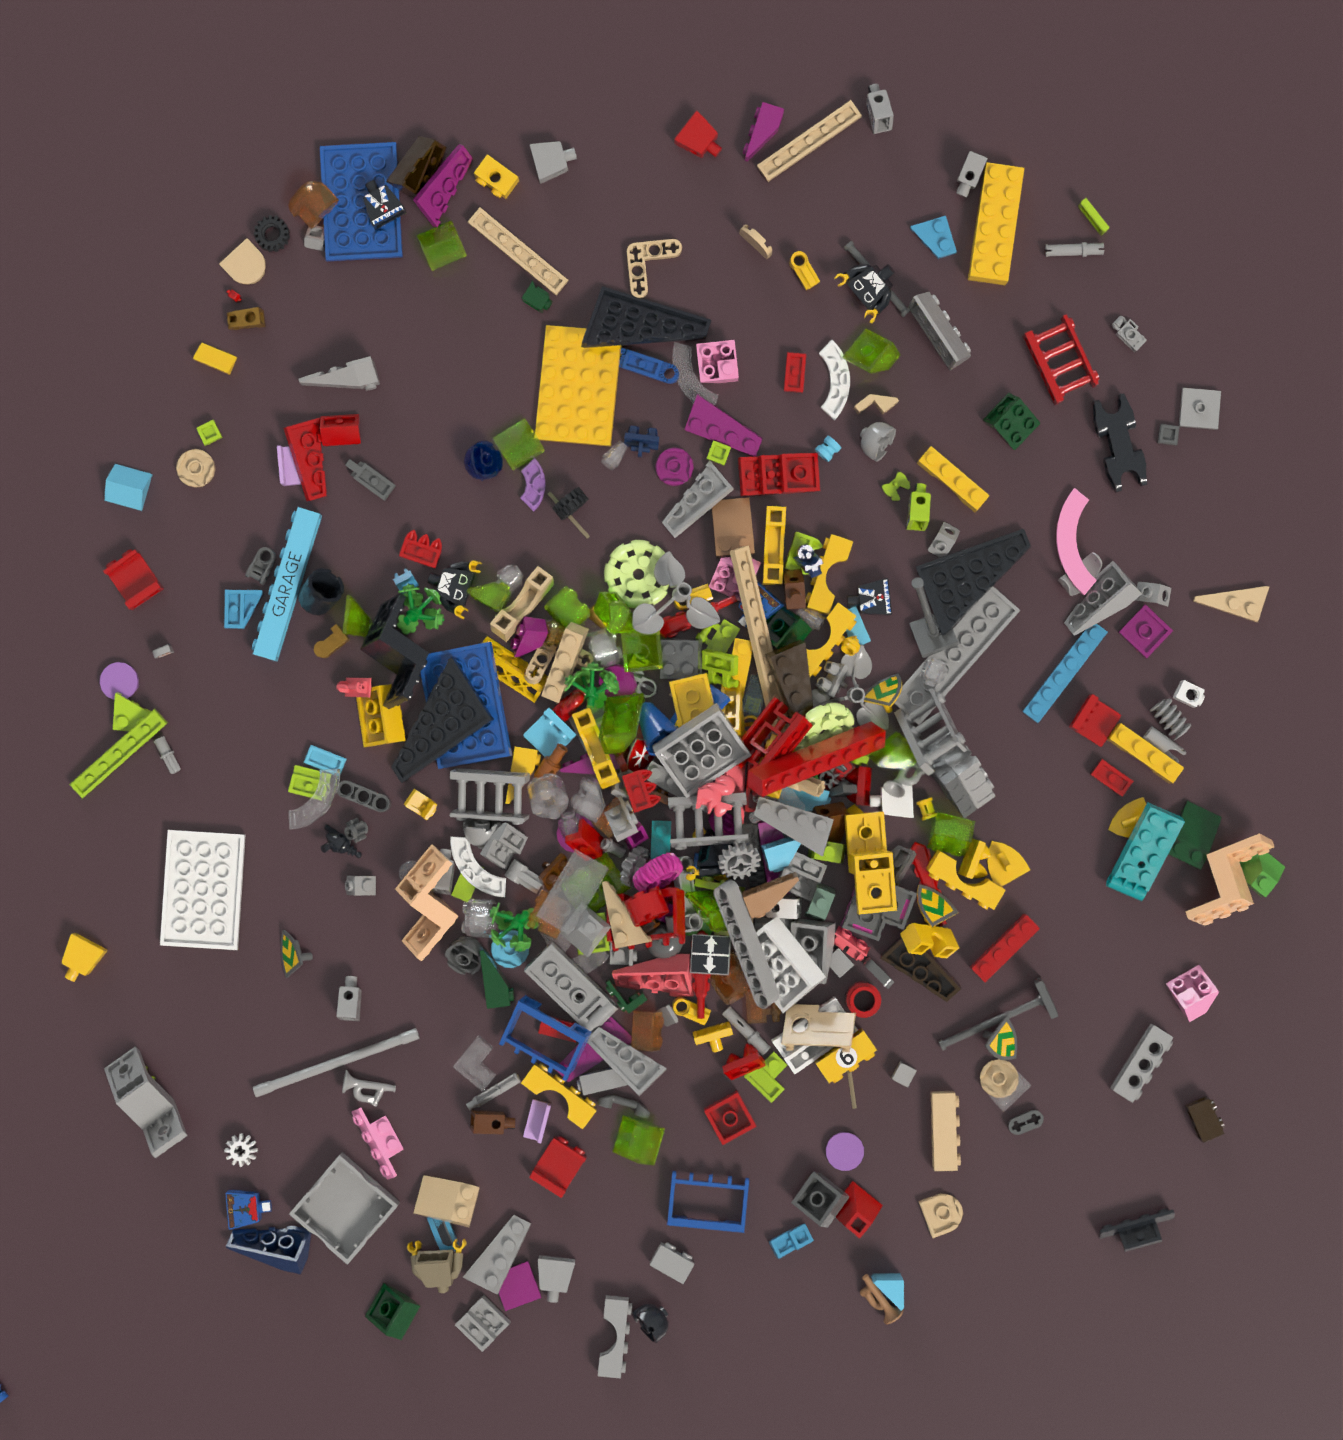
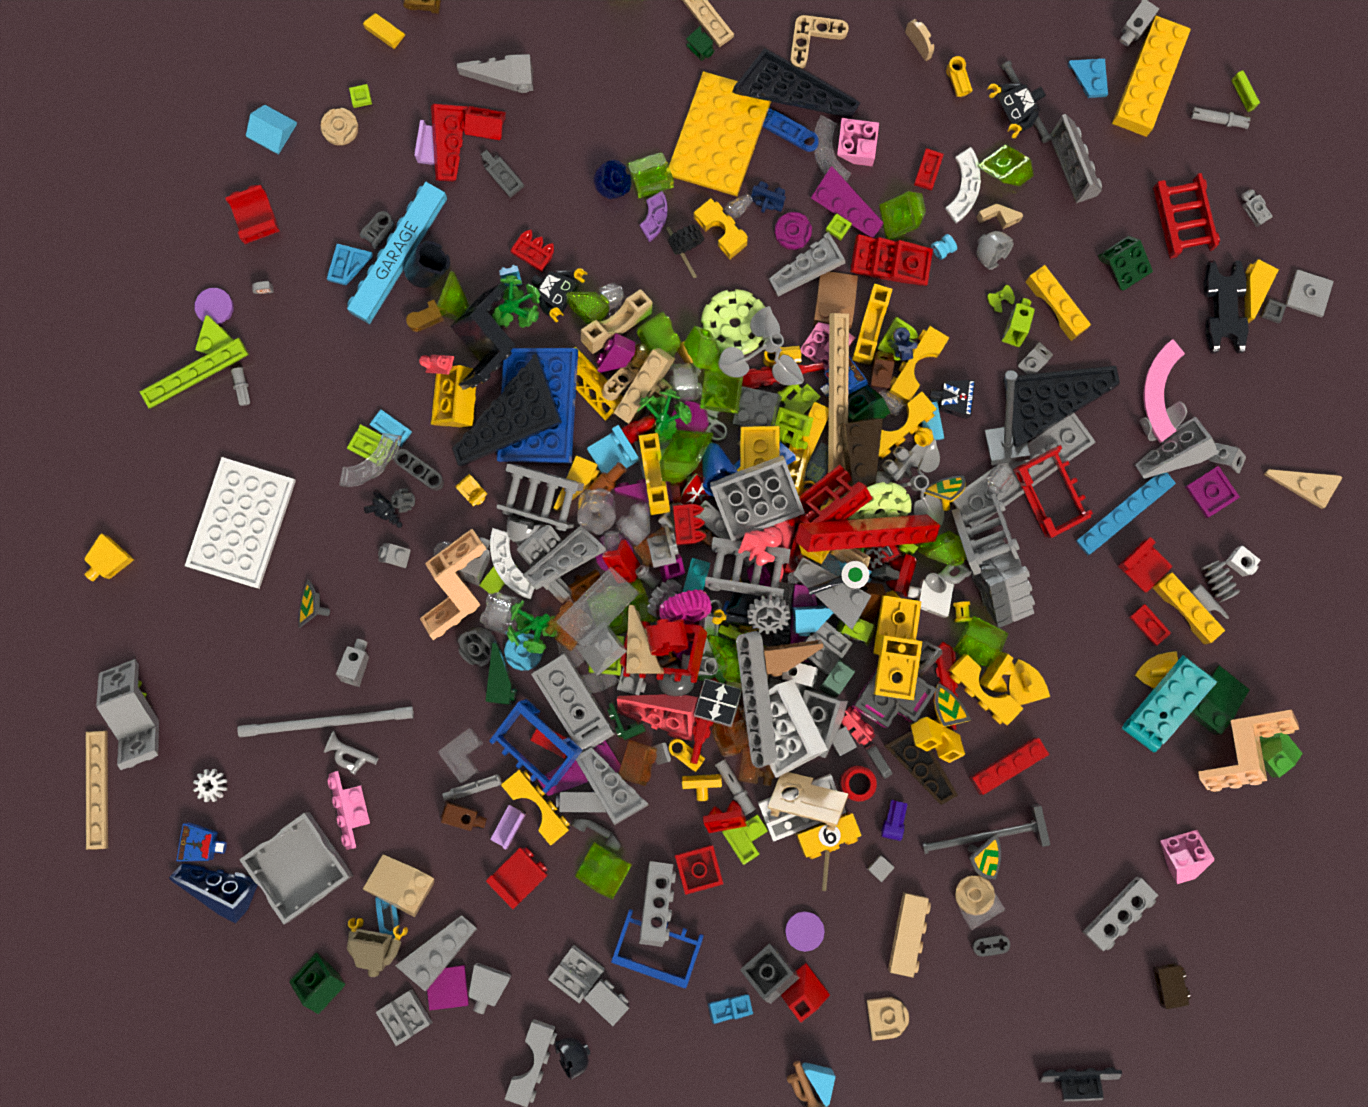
camera: 15 degrees right, 5 degrees down
(132, 1180) = (97, 790): none -> tan tile
(531, 846) = (566, 556): none -> light grey wing
(590, 471) = (712, 215): none -> yellow arch
(636, 1243) = (576, 974): none -> light grey slope
(696, 1190) = (648, 934): none -> light grey brick
(779, 426) = (902, 214): none -> clear neon green slope
(812, 803) = (853, 575): none -> piece
(907, 1031) = (893, 826): none -> dark purple piece
(960, 668) = (1025, 481): none -> red hinge
(1146, 413) = (1258, 282): none -> yellow slope

